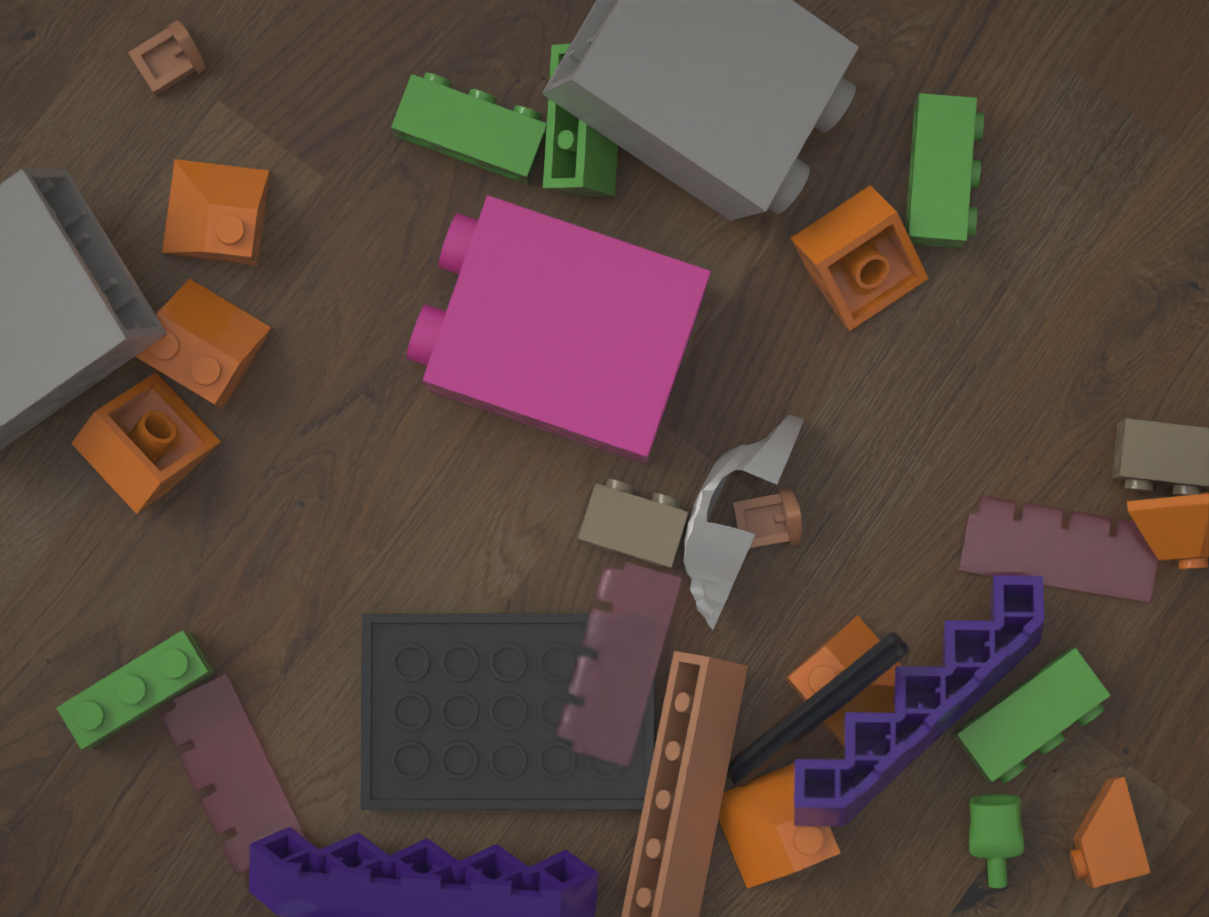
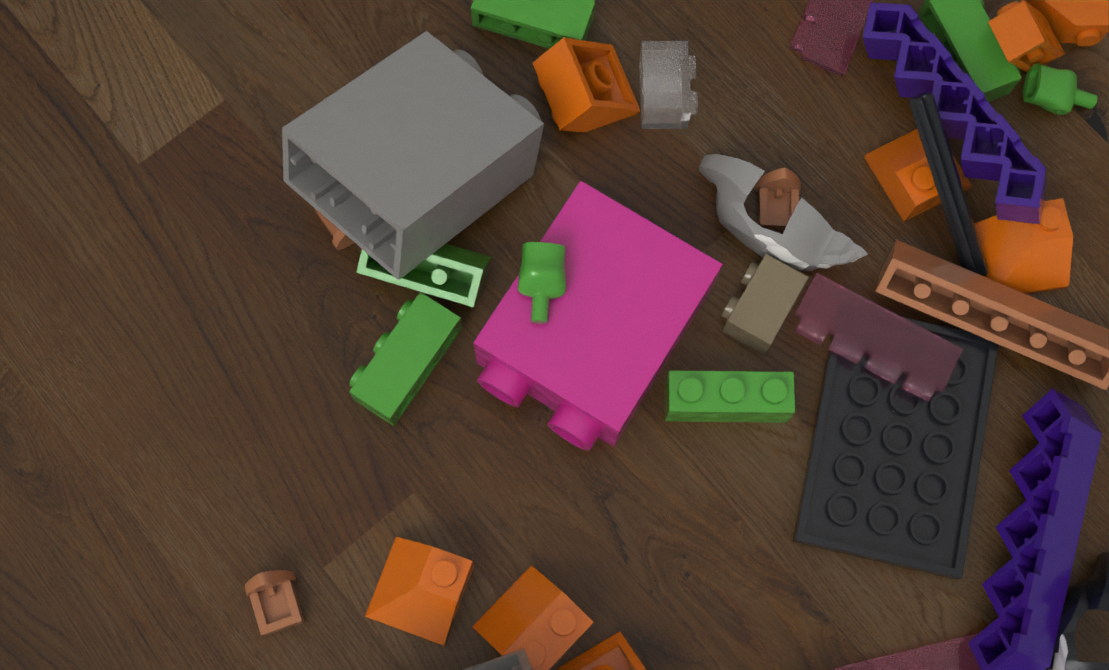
camera: 80 degrees left, 10 degrees down
(509, 505) = (729, 396): none -> bright green brick
(577, 253) = (542, 276): none -> bright green piece
(885, 352) = (665, 84): none -> clear brick
(1048, 777) = (1025, 35): none -> orange brick

